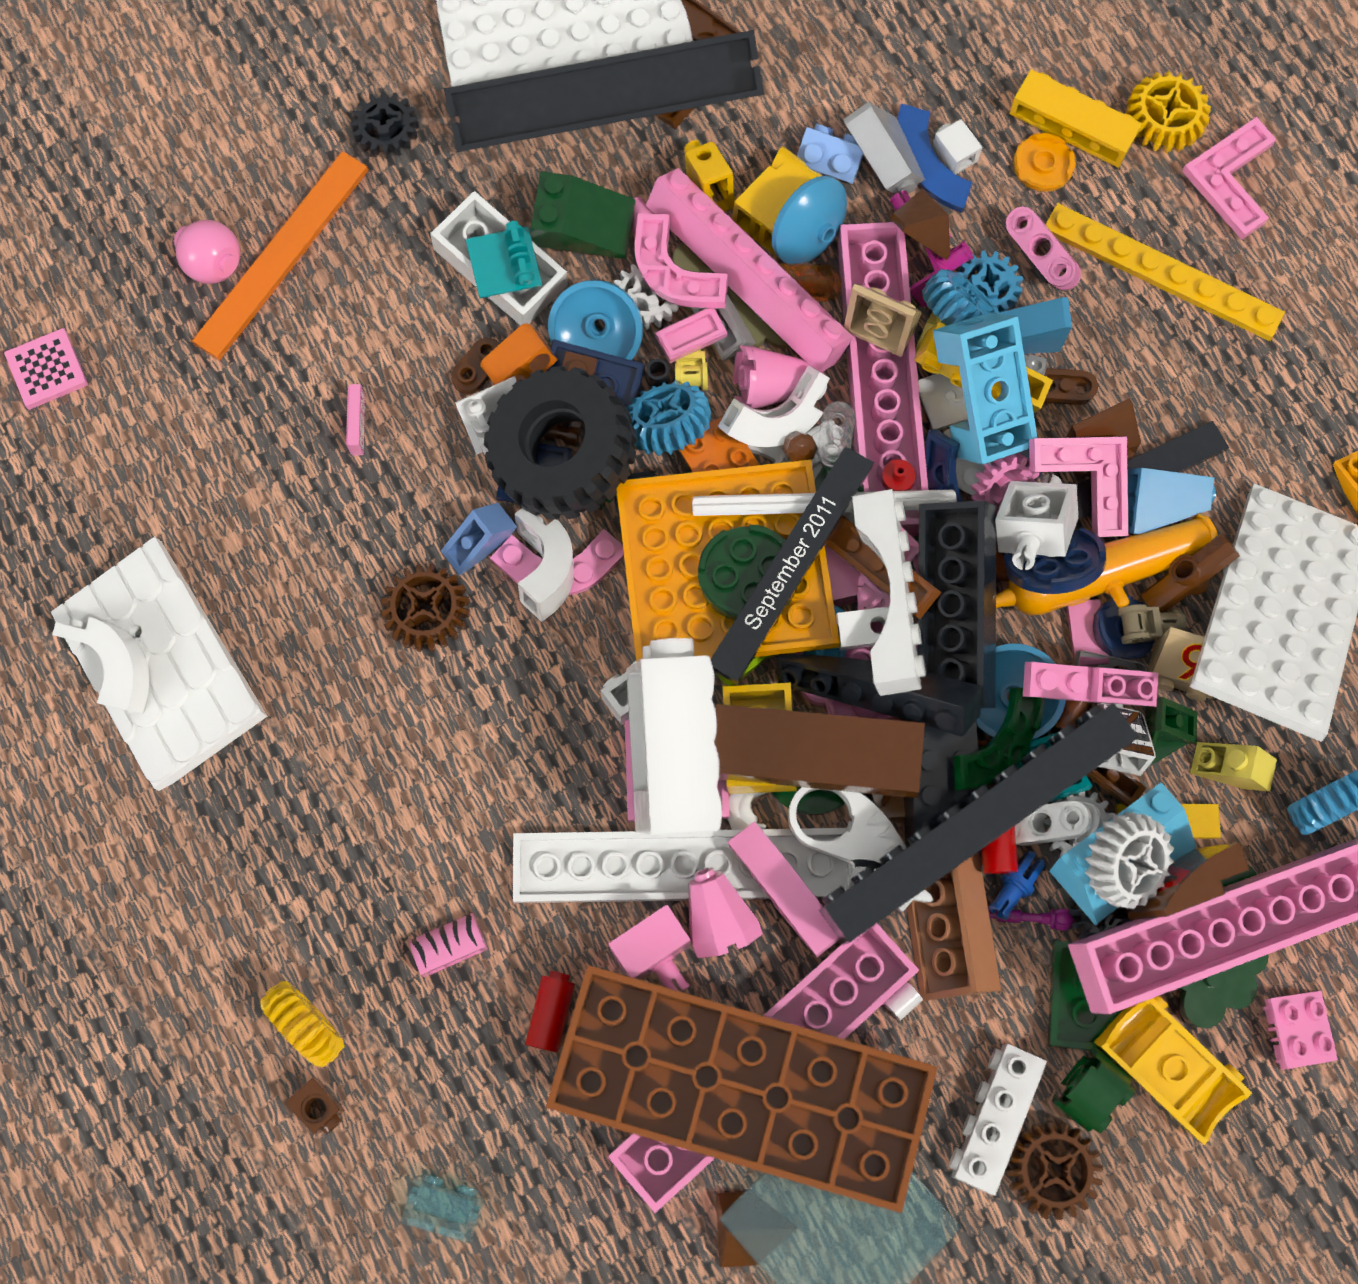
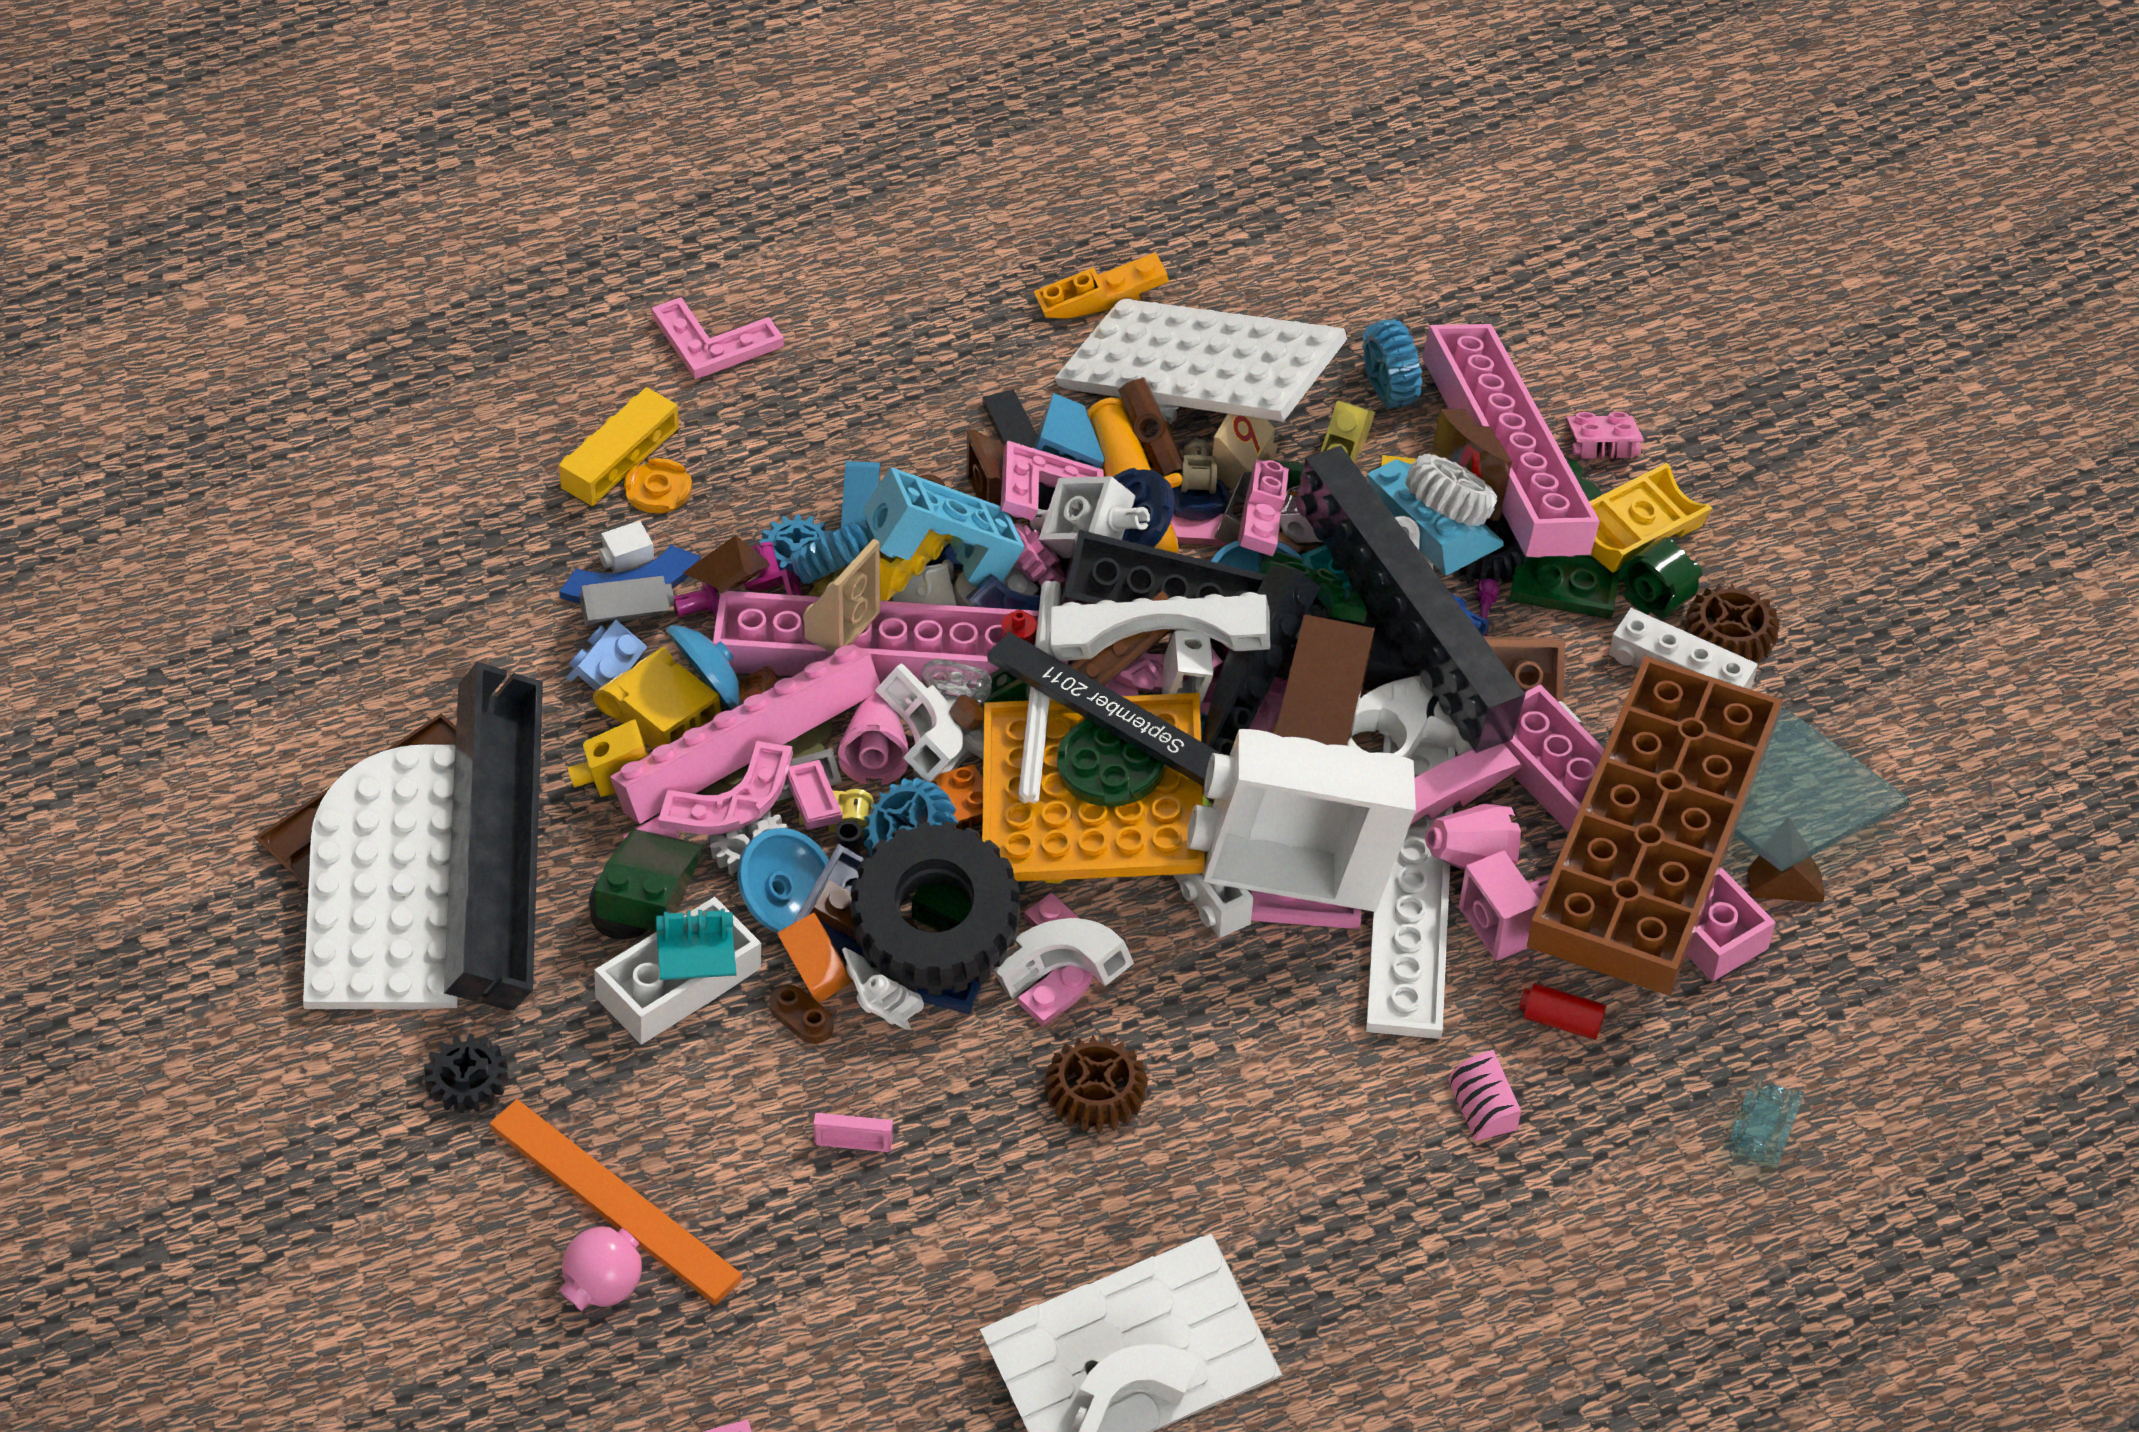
camera: 85 degrees left, 25 degrees down
(301, 1103) = (1651, 1243): reddish brown brick -> none
(302, 1024) = (1572, 1215): yellow gear -> none
(478, 537) = (1020, 1025): medium blue slope -> none
(1029, 240) = (780, 481): bright pink piece -> none
(1165, 272) = (805, 413): yellow plate -> none
(1187, 108) = (624, 368): yellow gear -> none

